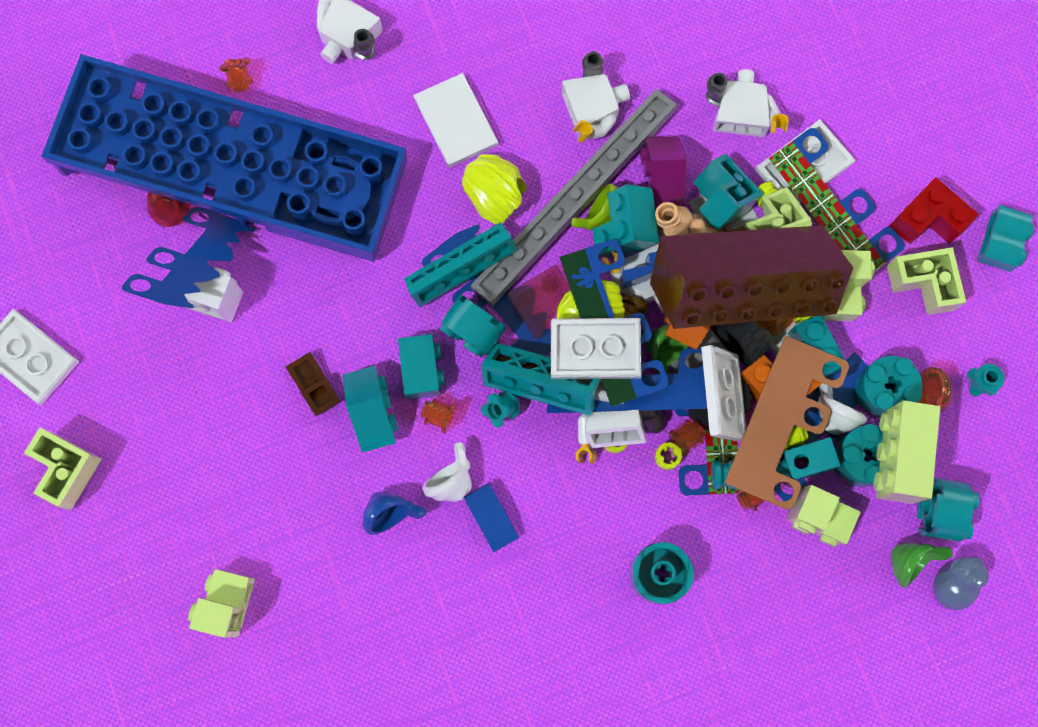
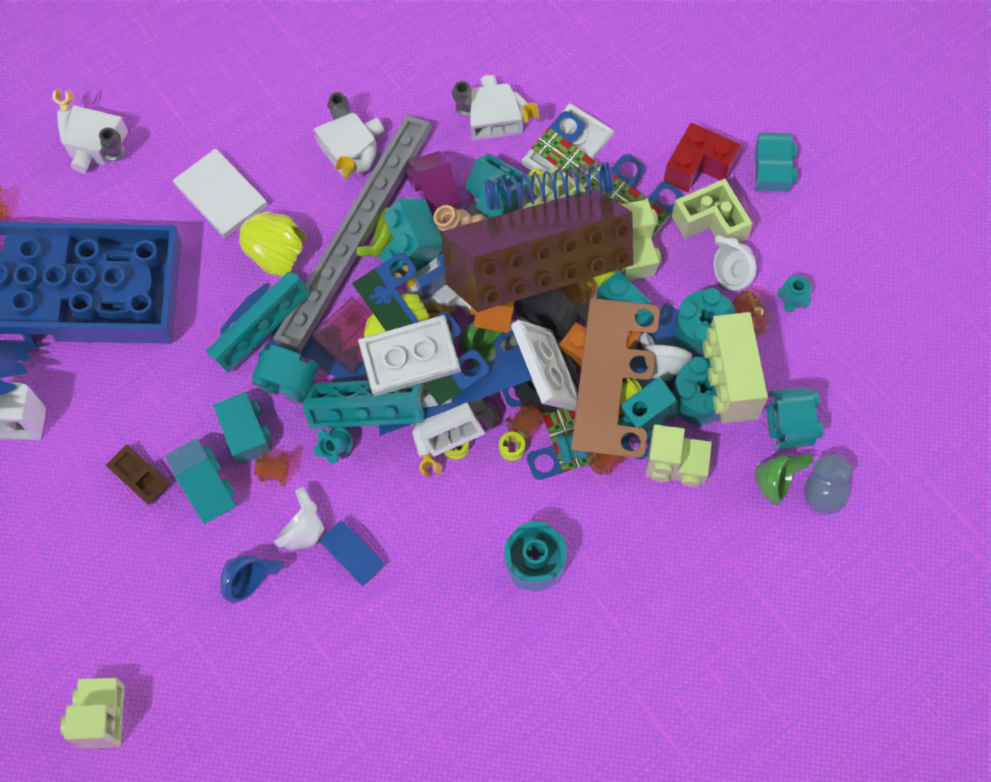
camera: 15 degrees left, 10 degrees down
(719, 208) = (603, 174): none -> blue piece
(934, 335) = (734, 264): none -> white hat

